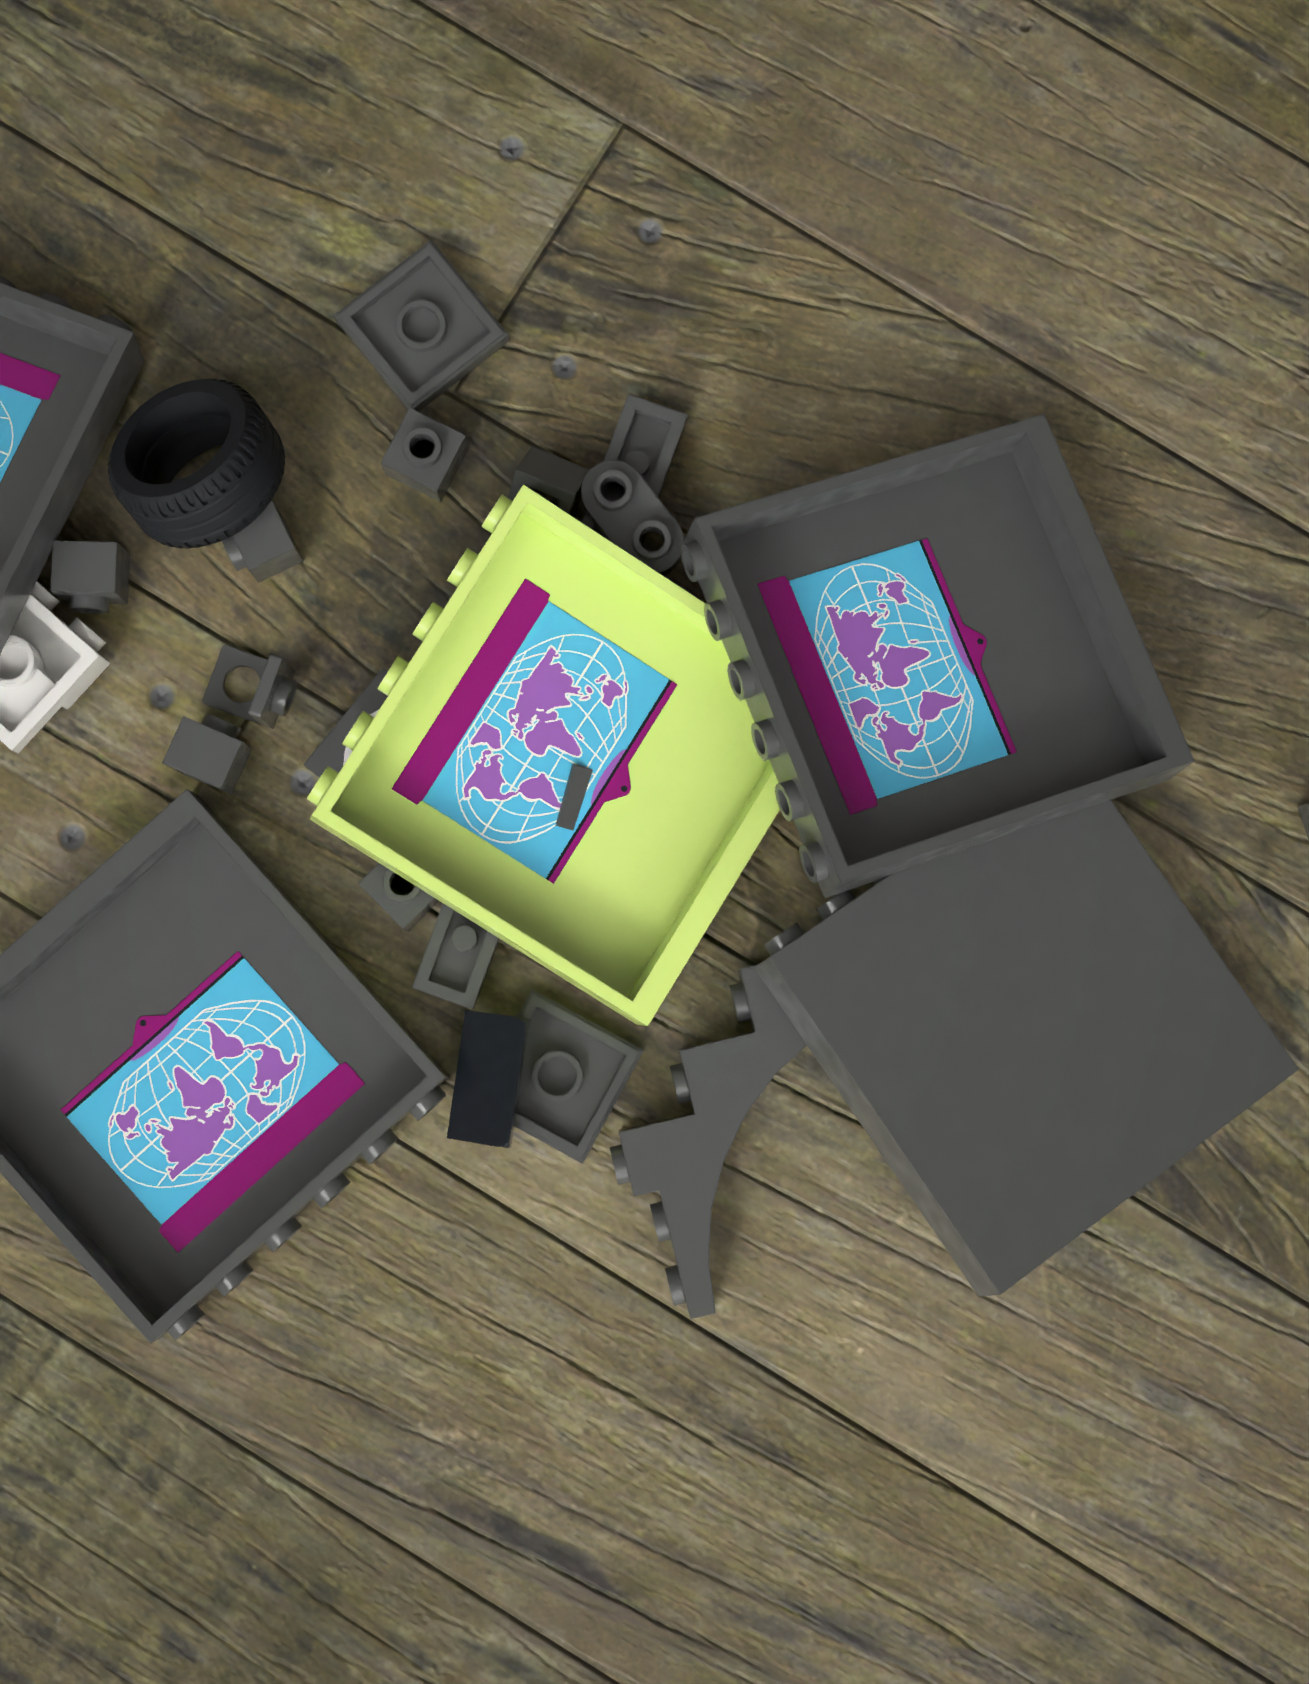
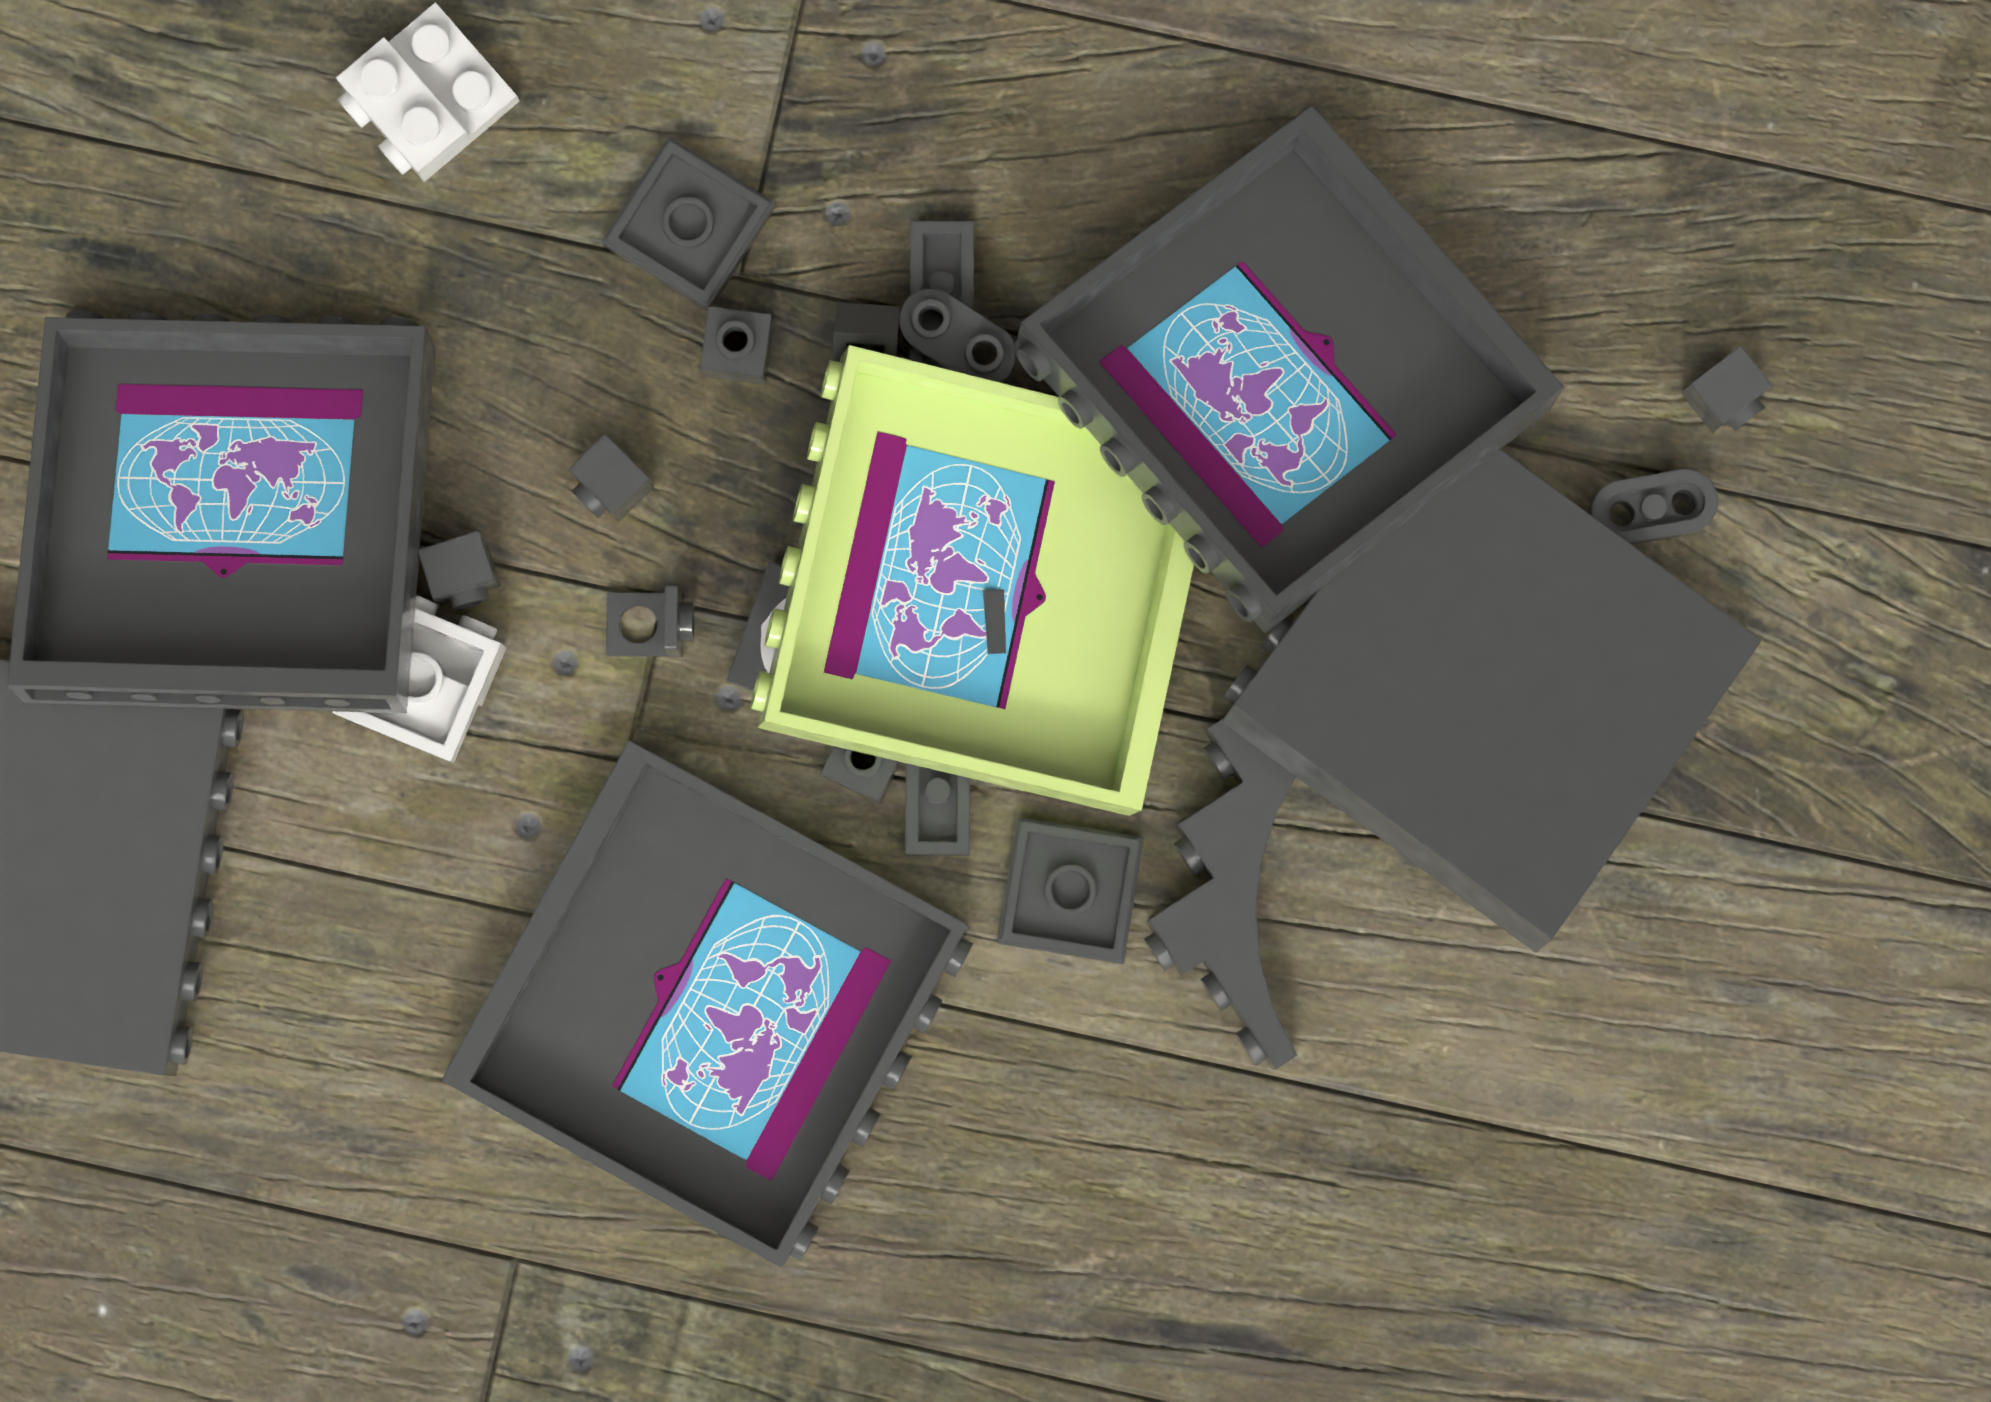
camera: 15 degrees left, 0 degrees up
(208, 752) = (633, 699): dark grey plate -> none
(218, 123) = (425, 93): none -> white plate
(221, 494) = (566, 455): black tyre -> none
(488, 1078) = (1007, 913): black slope -> none
(1233, 905) = (1651, 505): none -> dark grey plate

